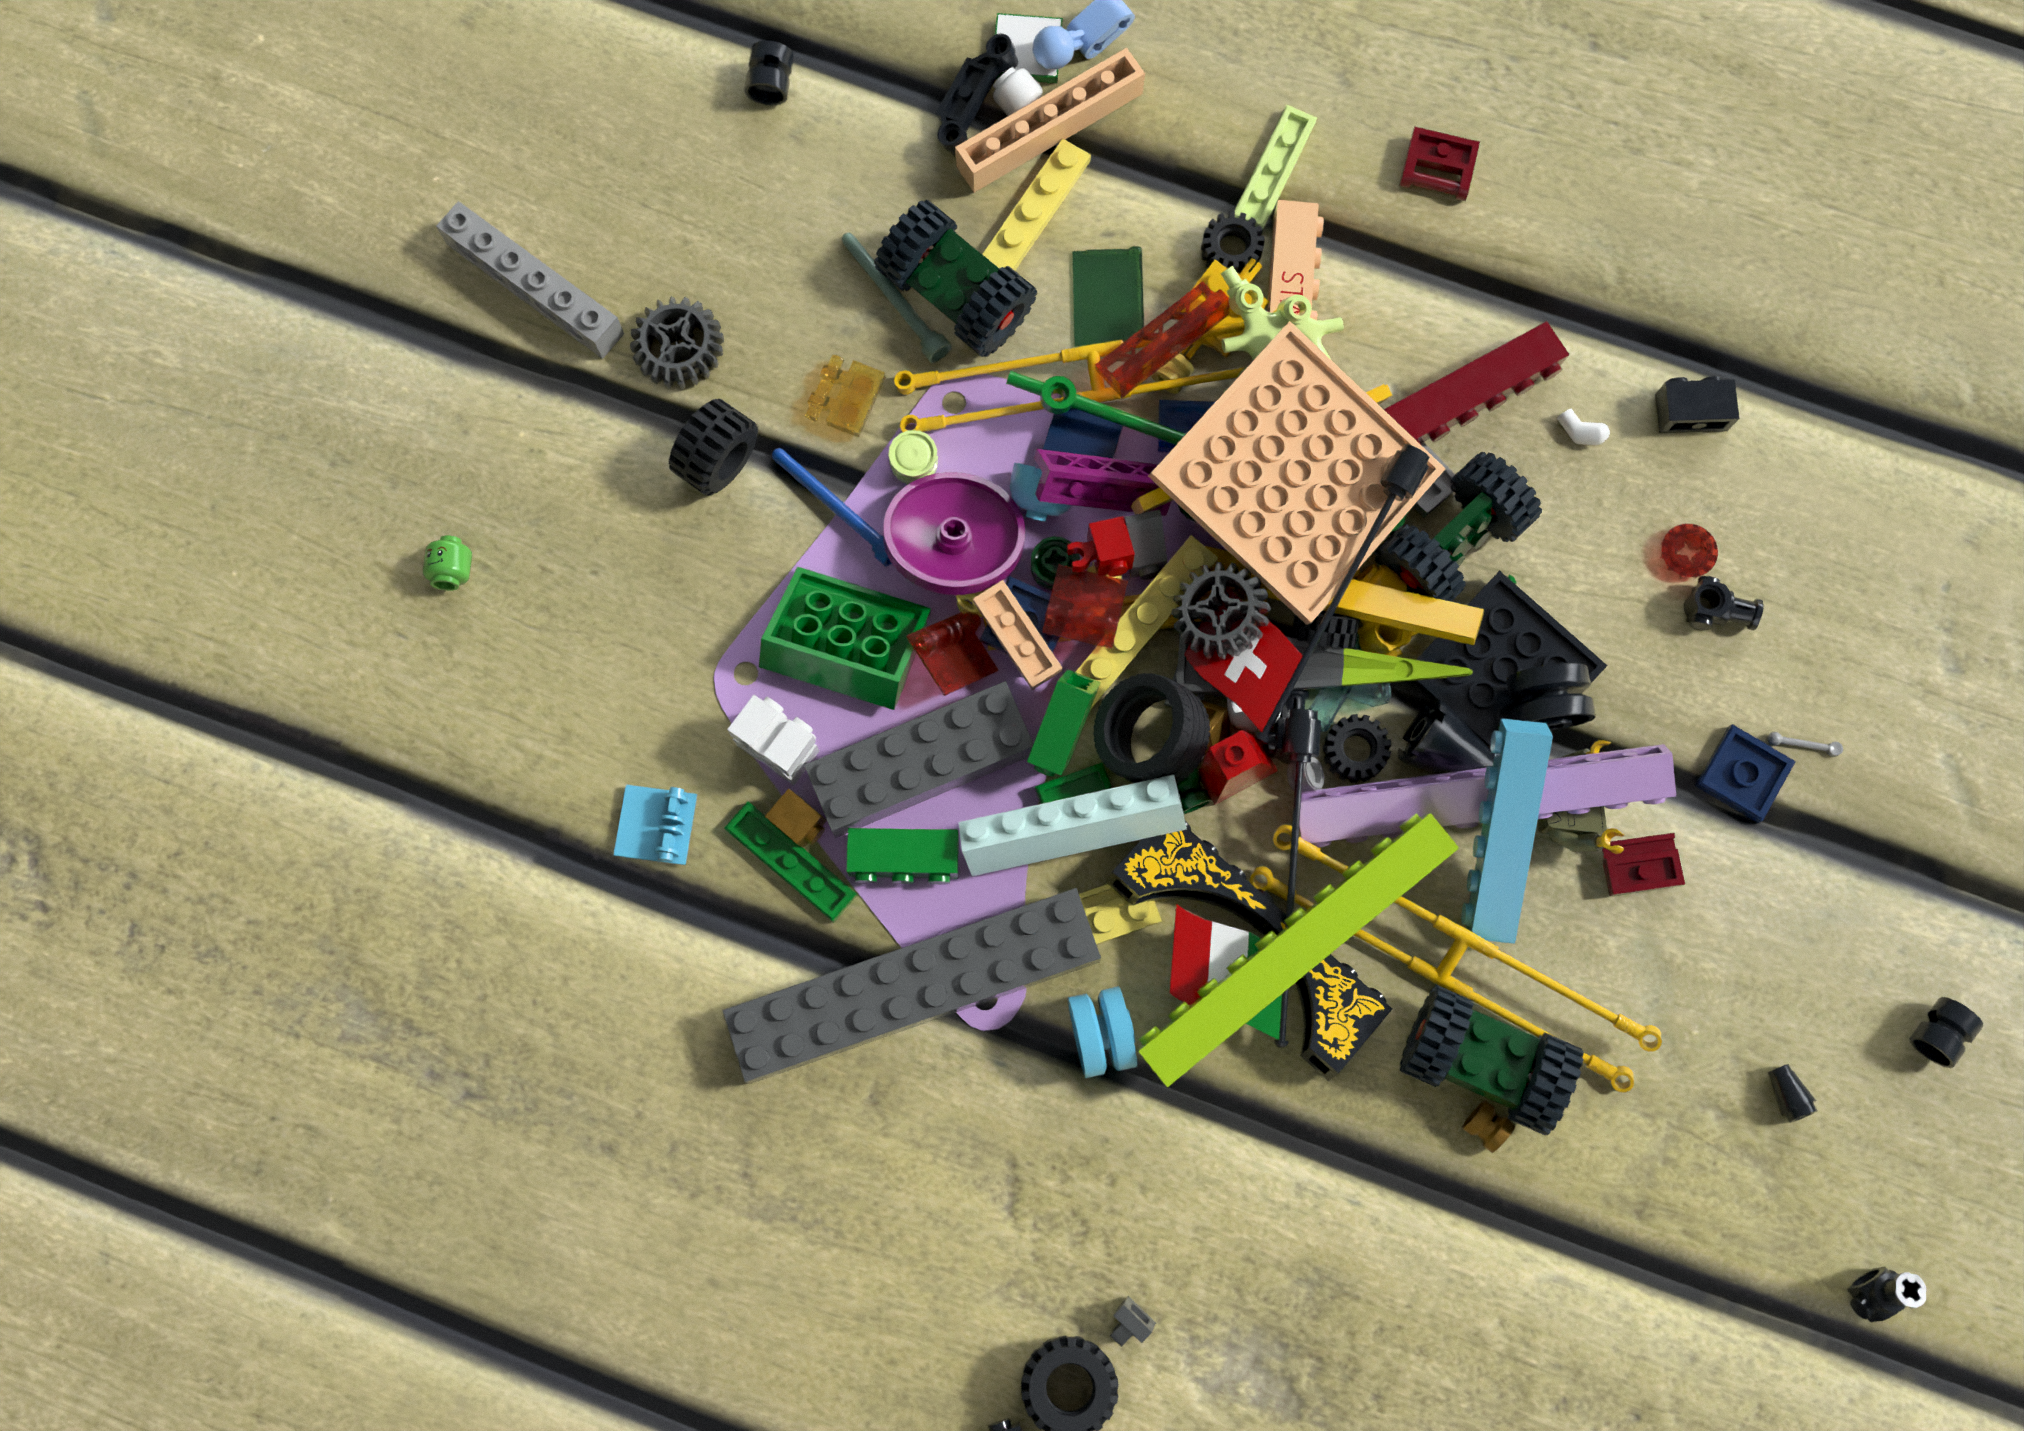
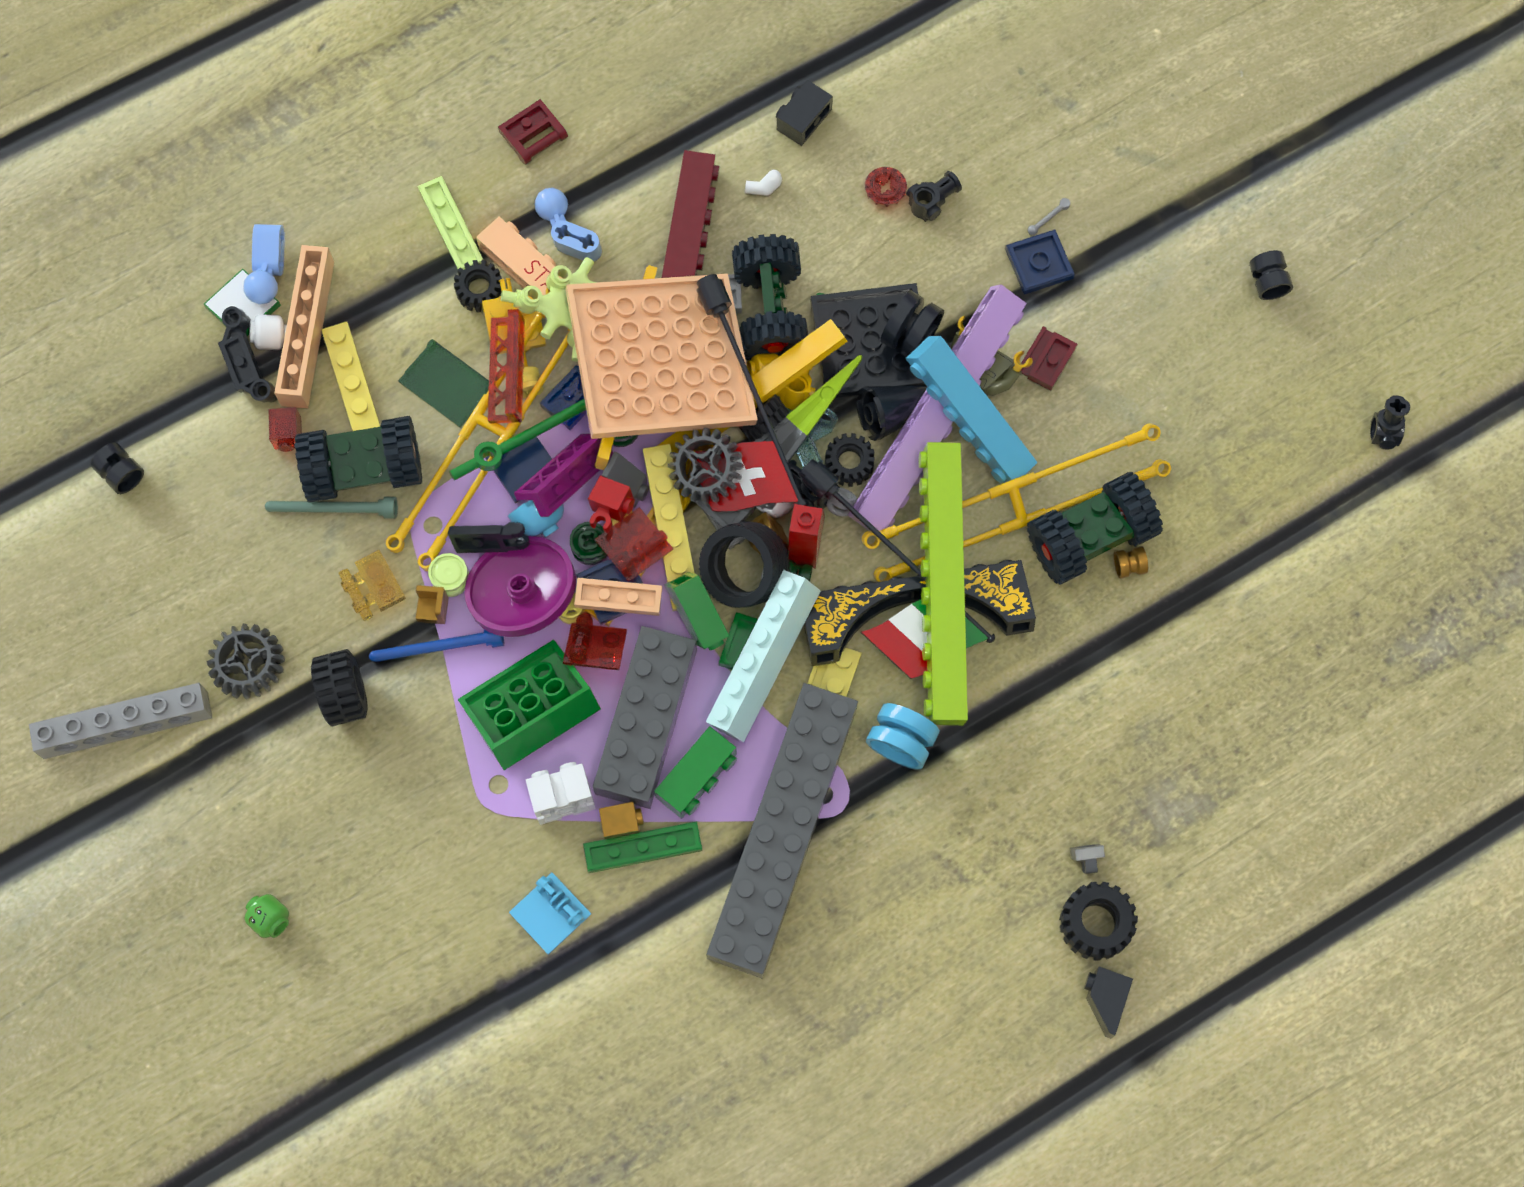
camera: 50 degrees left, 5 degrees down
(870, 466) = (431, 604): none -> pearl gold panel
(935, 184) = (283, 427): none -> clear red brick
(978, 464) = (488, 538): none -> black hinge
(1375, 245) = (552, 205): none -> light blue beam
(1791, 1094) = (1241, 384): black cone -> none

